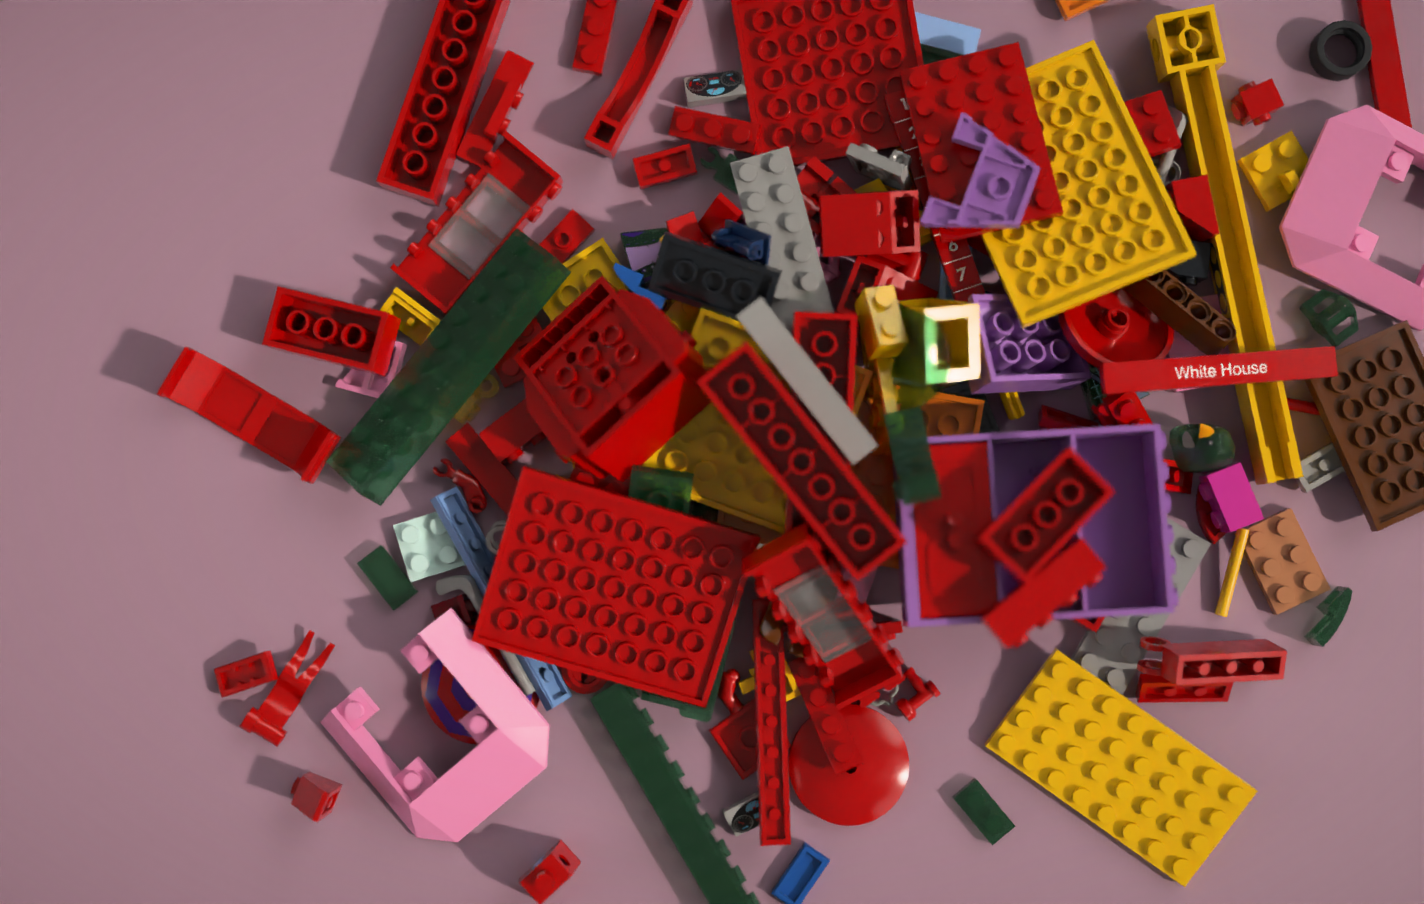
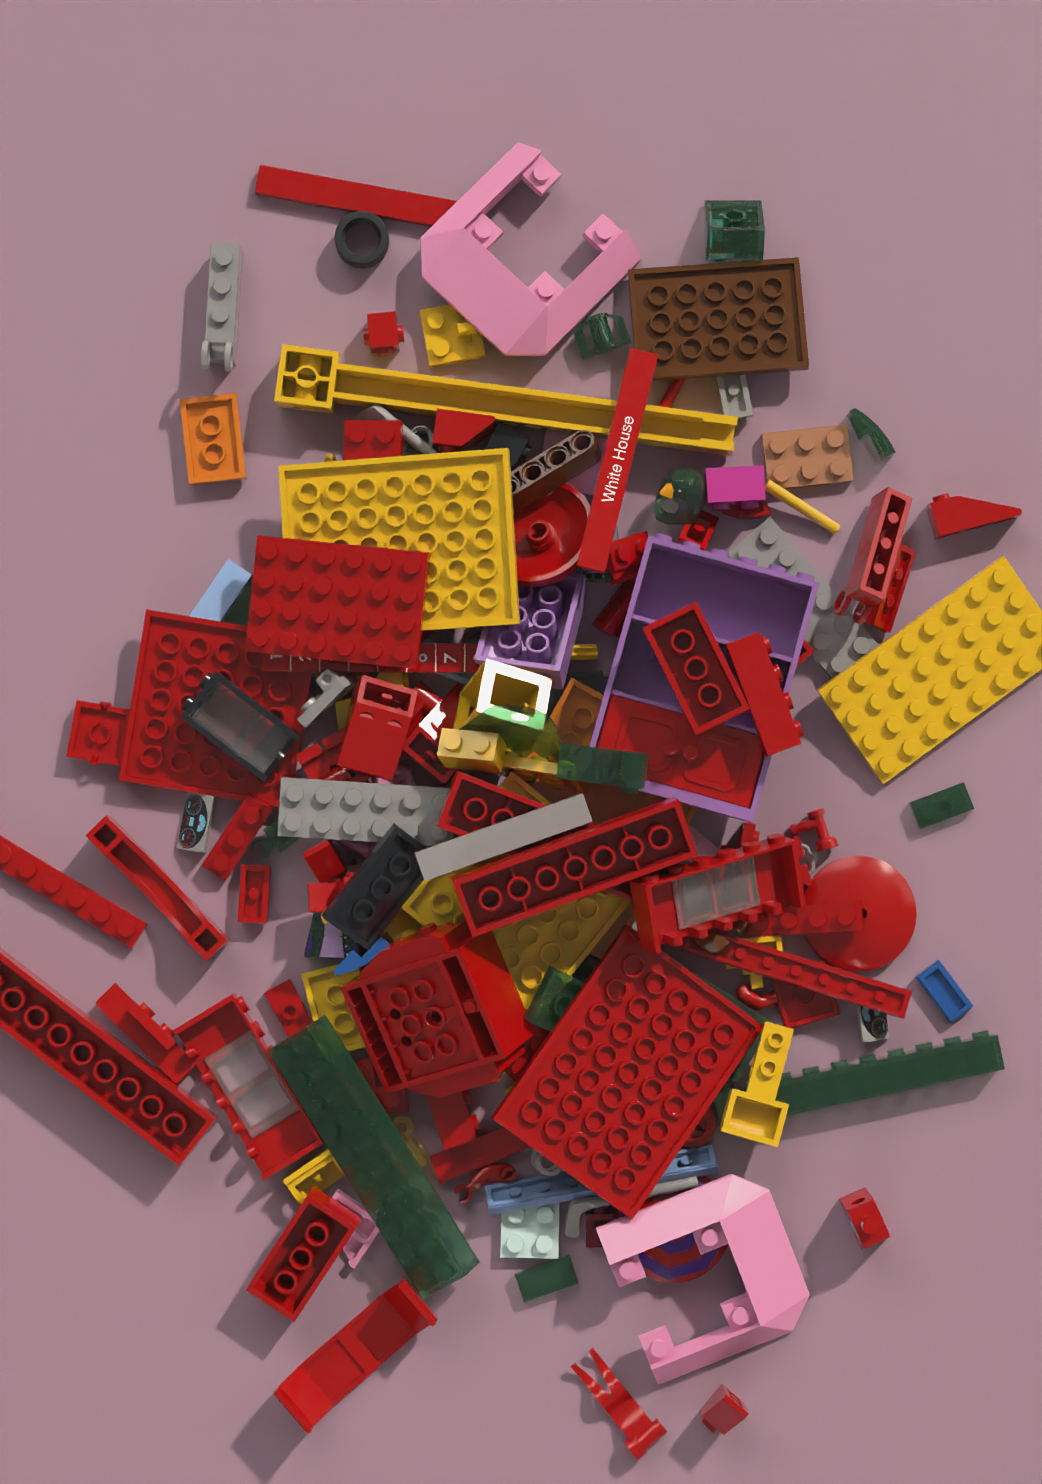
camera: 75 degrees left, 0 degrees up
(246, 674) = (591, 1439): red plate -> none
(618, 727) = (755, 1112): none -> yellow plate
(743, 241) = (354, 848): dark blue hinge -> none
(824, 91) = (239, 725): none -> clear door
(996, 190) = (385, 603): medium lavender wing -> none
(1283, 736) = (962, 514): none -> red slope

